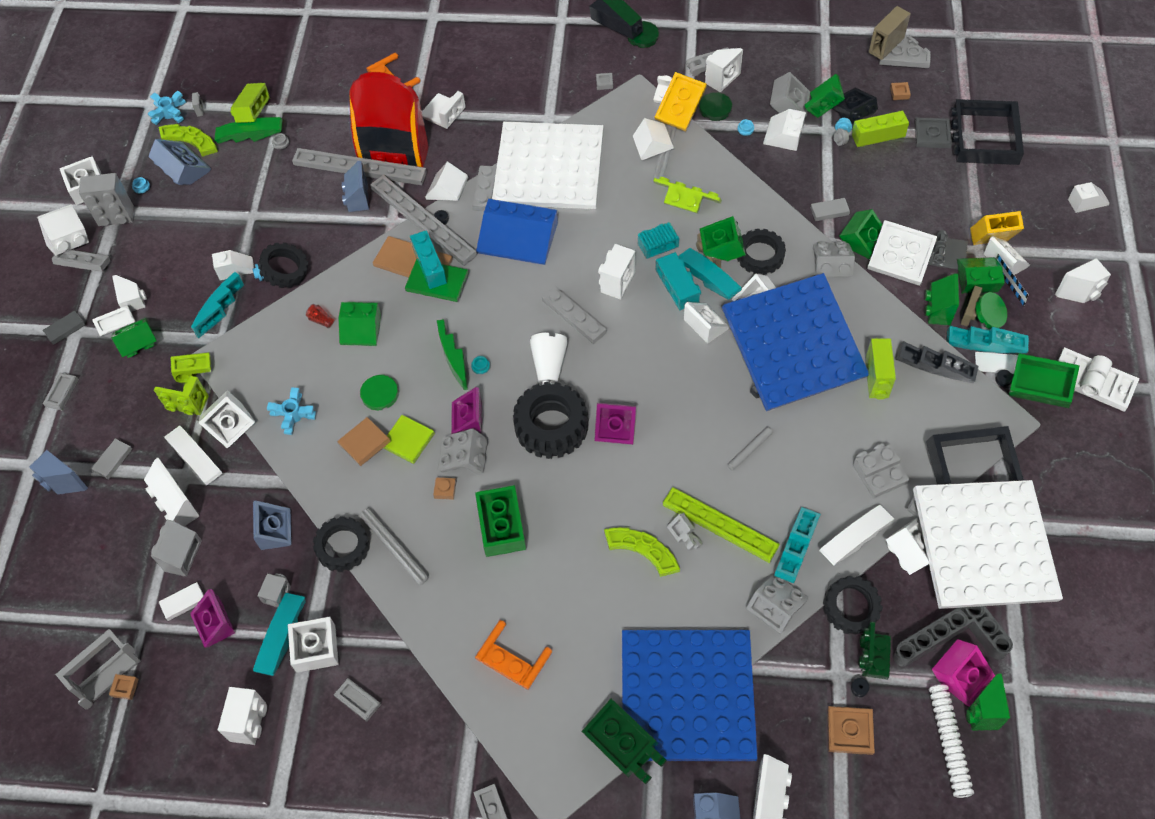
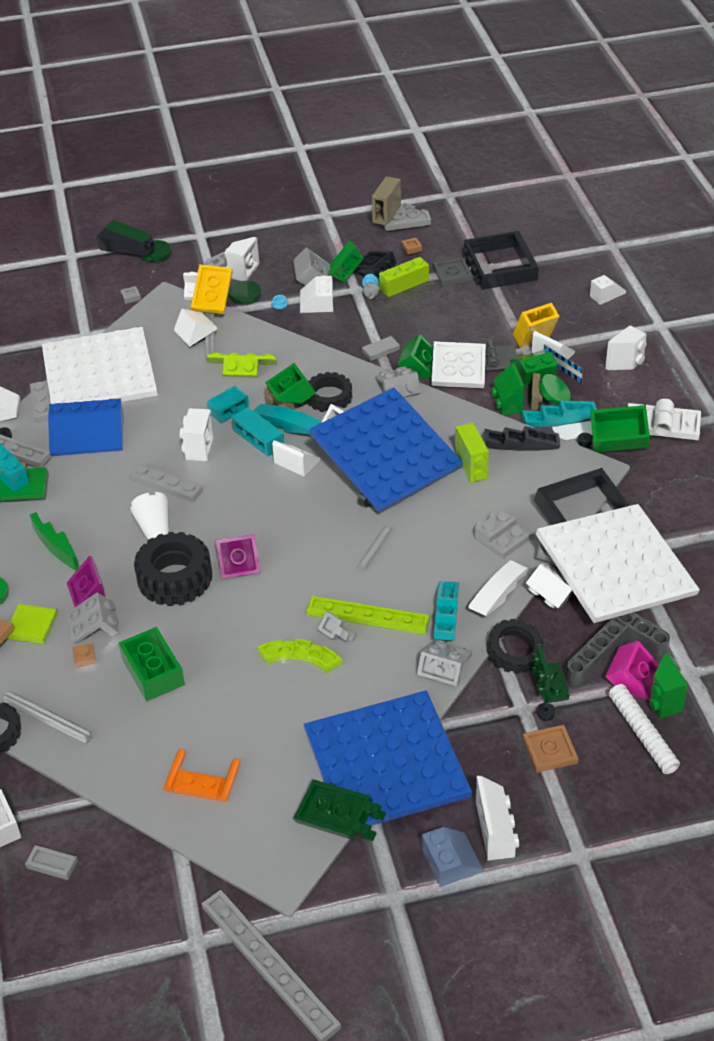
camera: 20 degrees left, 15 degrees down
(480, 365) = (85, 544): teal plate -> none

